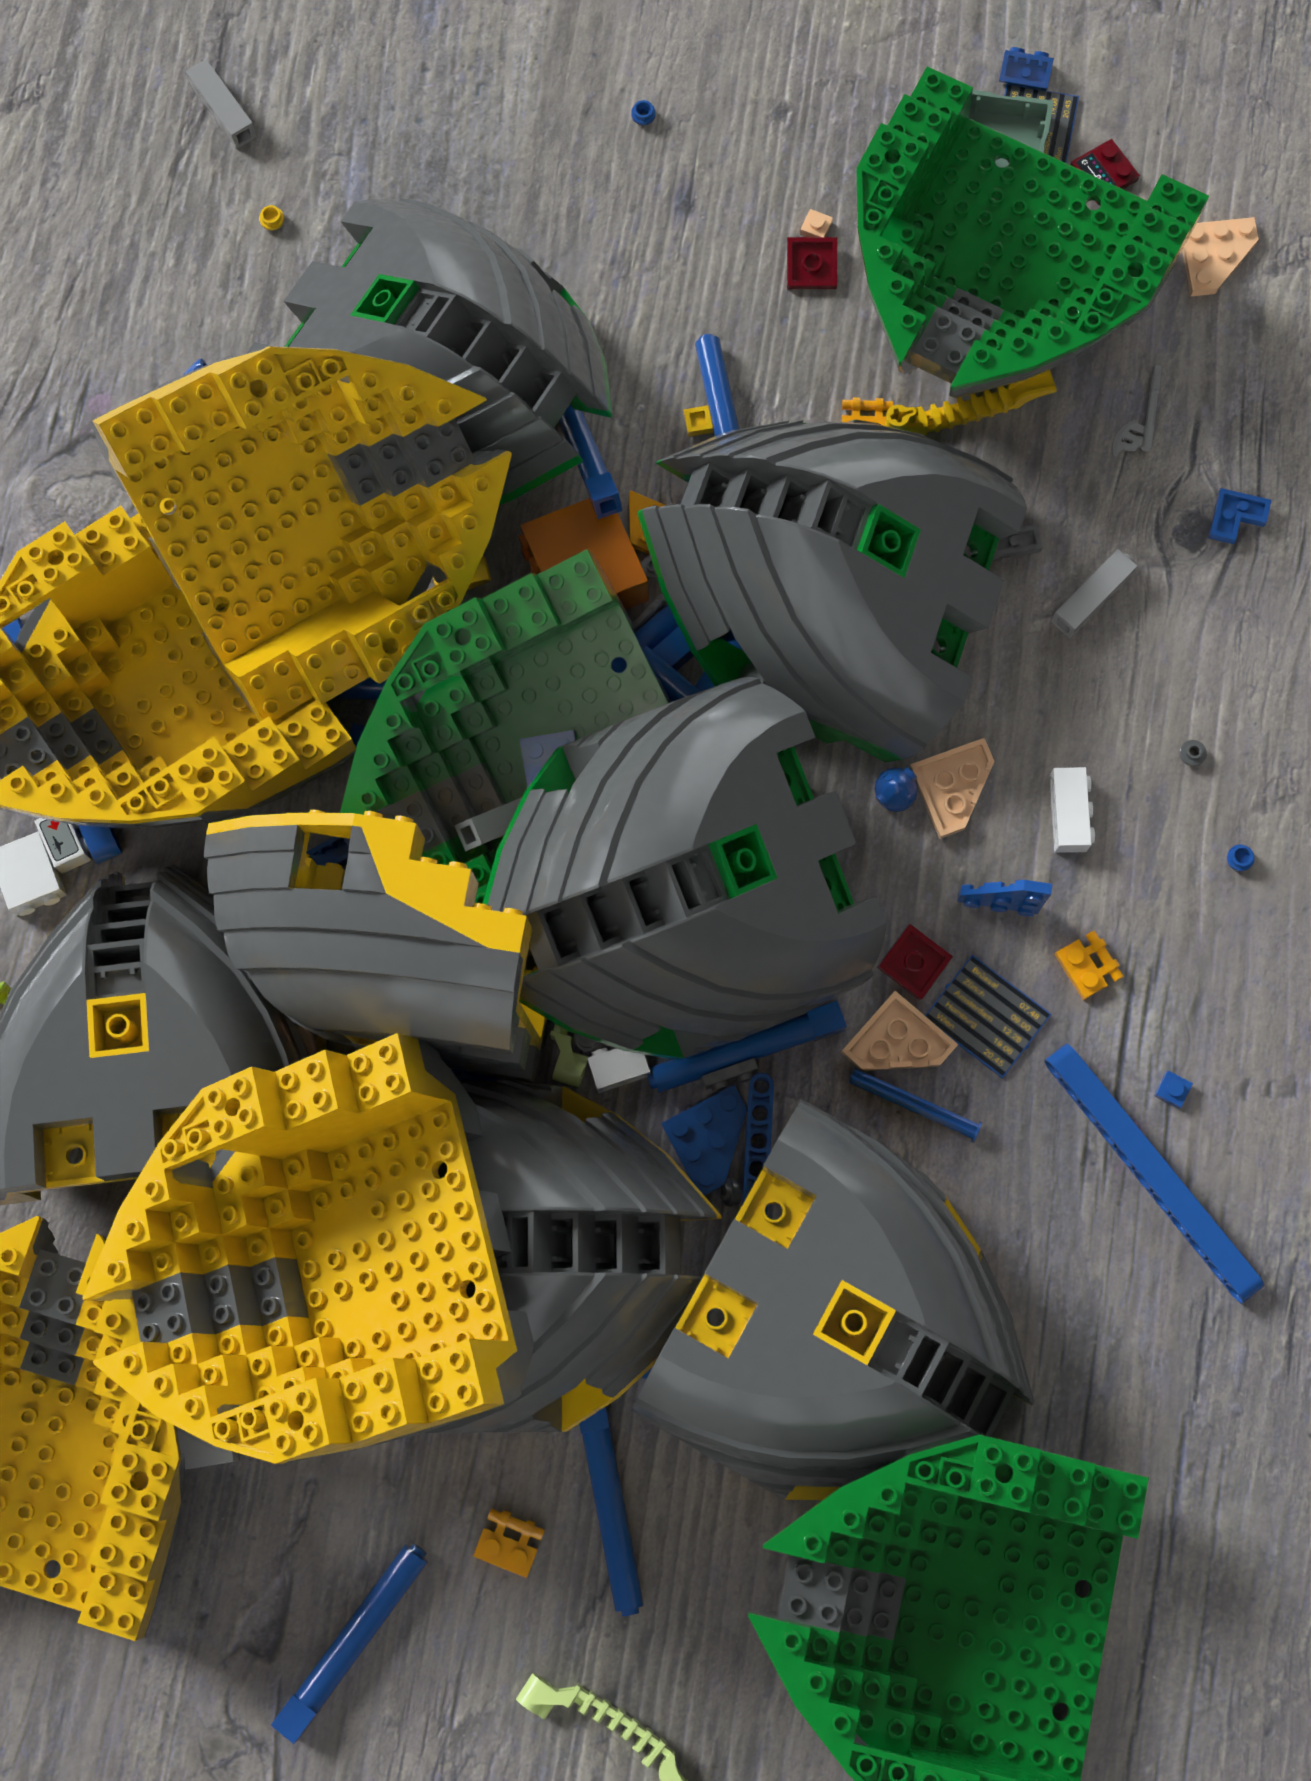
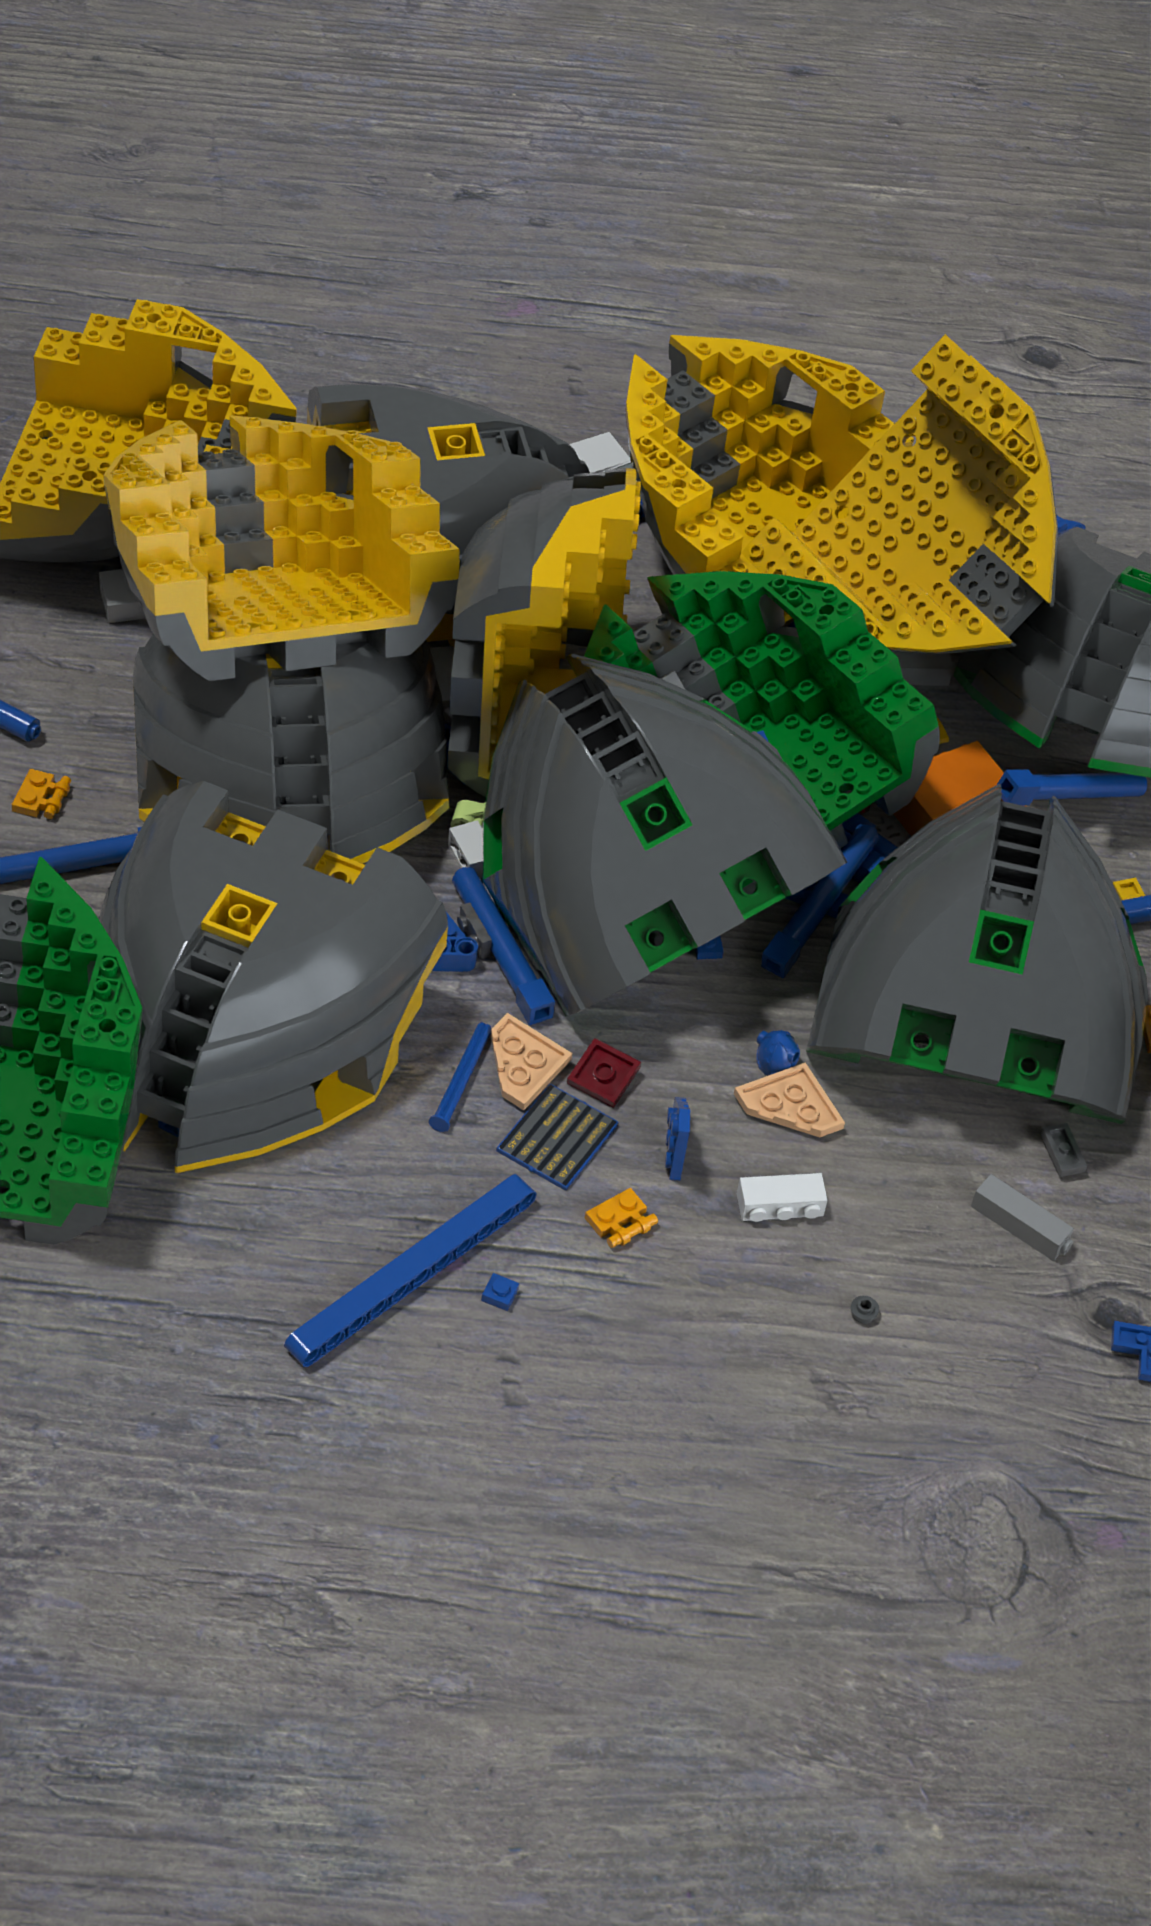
camera: 75 degrees right, 25 degrees down
(1240, 857) = (756, 1351): blue plate -> none

